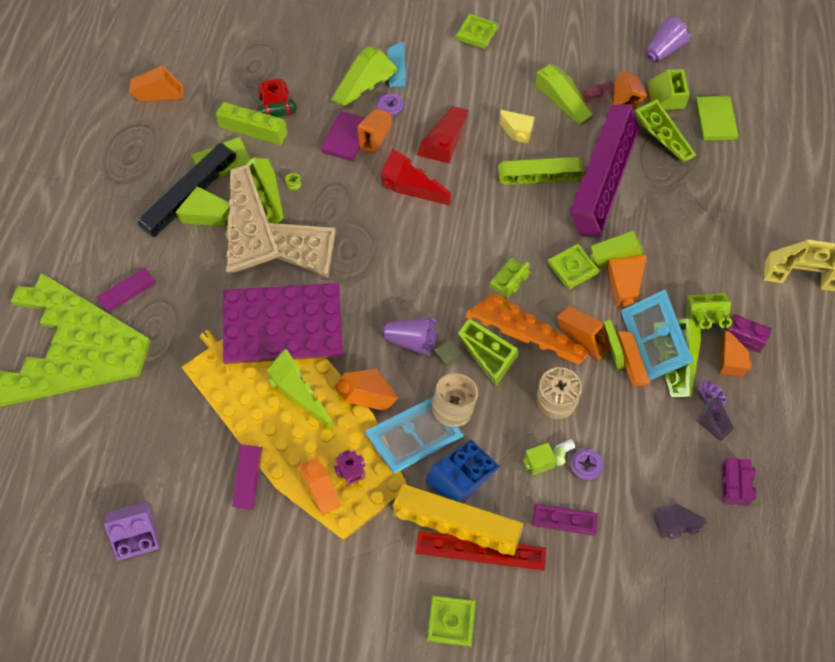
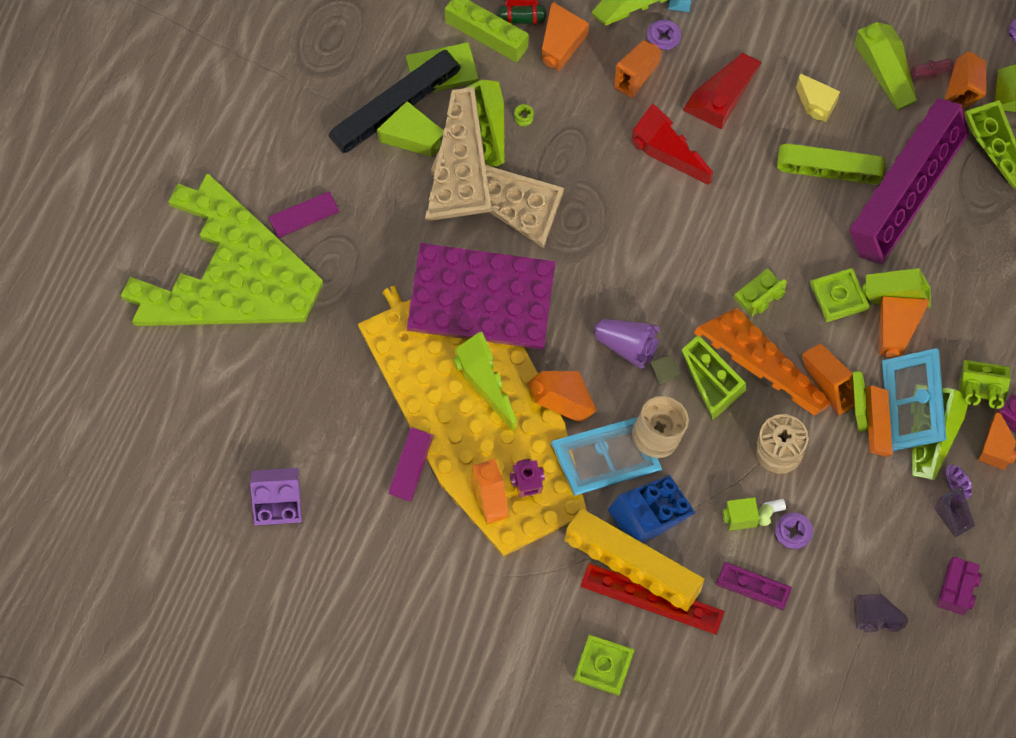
camera: 10 degrees right, 5 degrees up
(312, 119) = (562, 36): none -> orange slope
(343, 137) = (597, 67): magenta tile -> none

